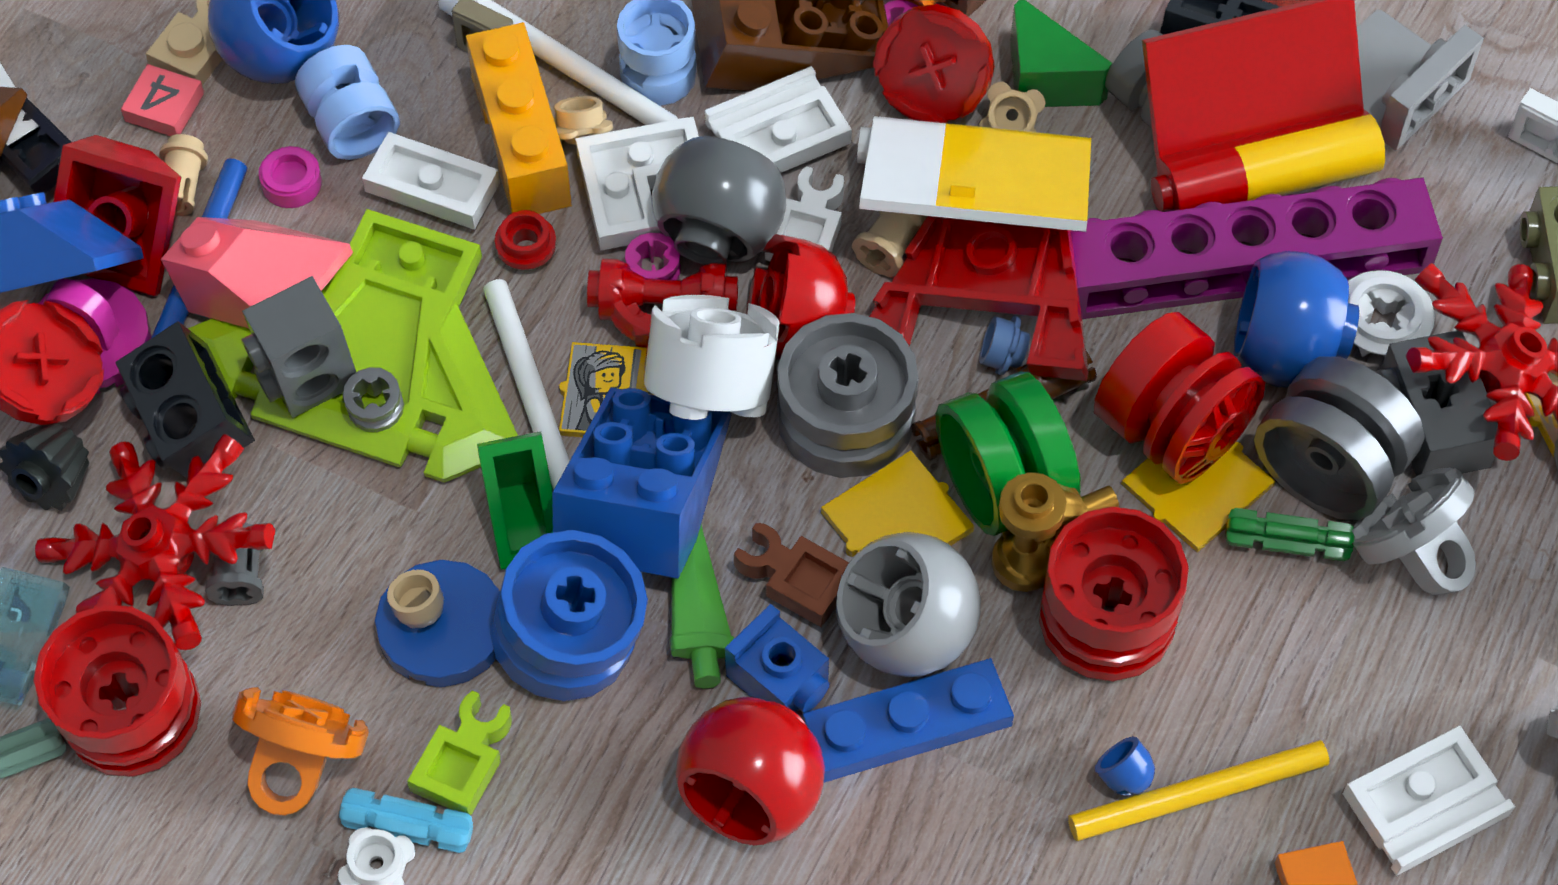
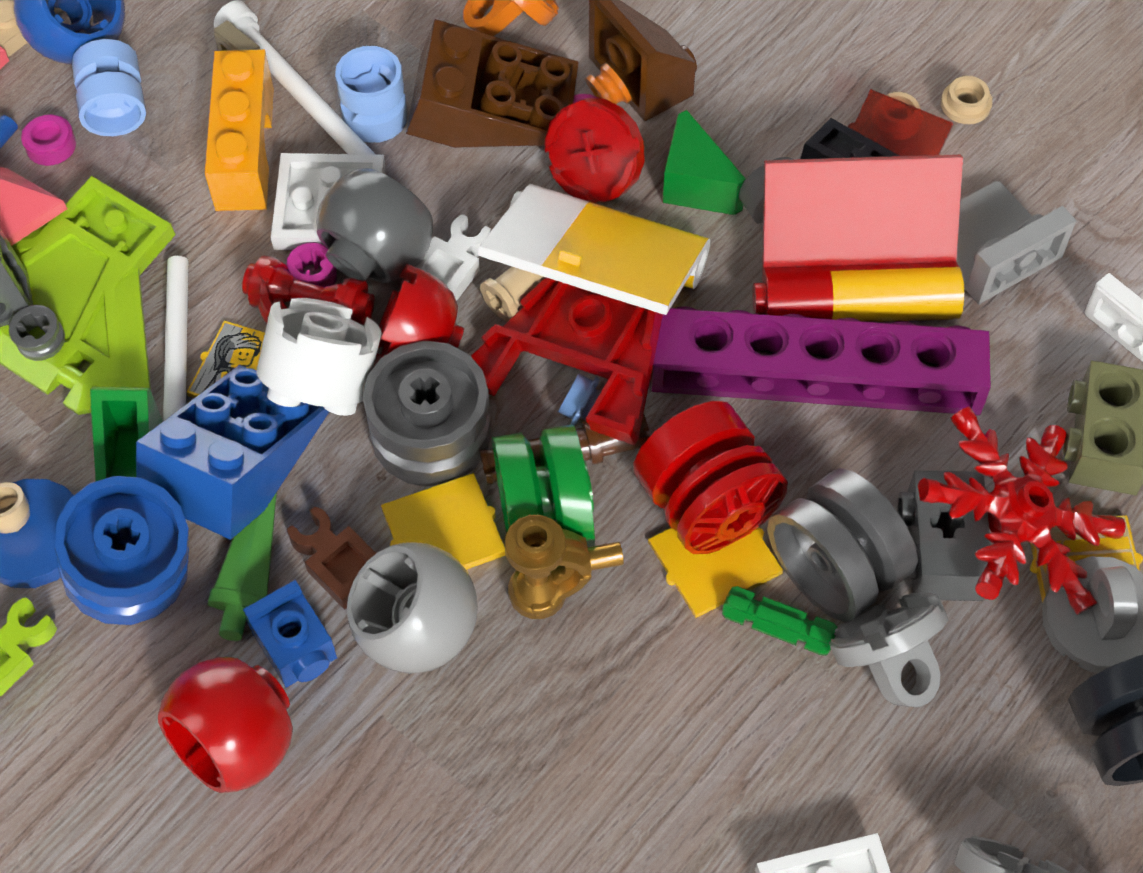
camera: 15 degrees right, 0 degrees up
(431, 180) = (154, 164): white plate -> none
(520, 227) = (214, 217): red plate -> none
(580, 118) = (292, 137): tan plate -> none
(783, 120) = (456, 175): white plate -> none
(910, 719) = (389, 709): blue plate -> none
(1004, 98) = (647, 192): tan plate -> none
(1117, 562) = (590, 609): red wheel -> none
(1126, 767) = (565, 799): blue hinge -> none
(1198, 790) = (626, 834): yellow bar -> none
(1293, 314) = (836, 427): blue wheel -> none
(1389, 293) = (930, 424): white gear -> none

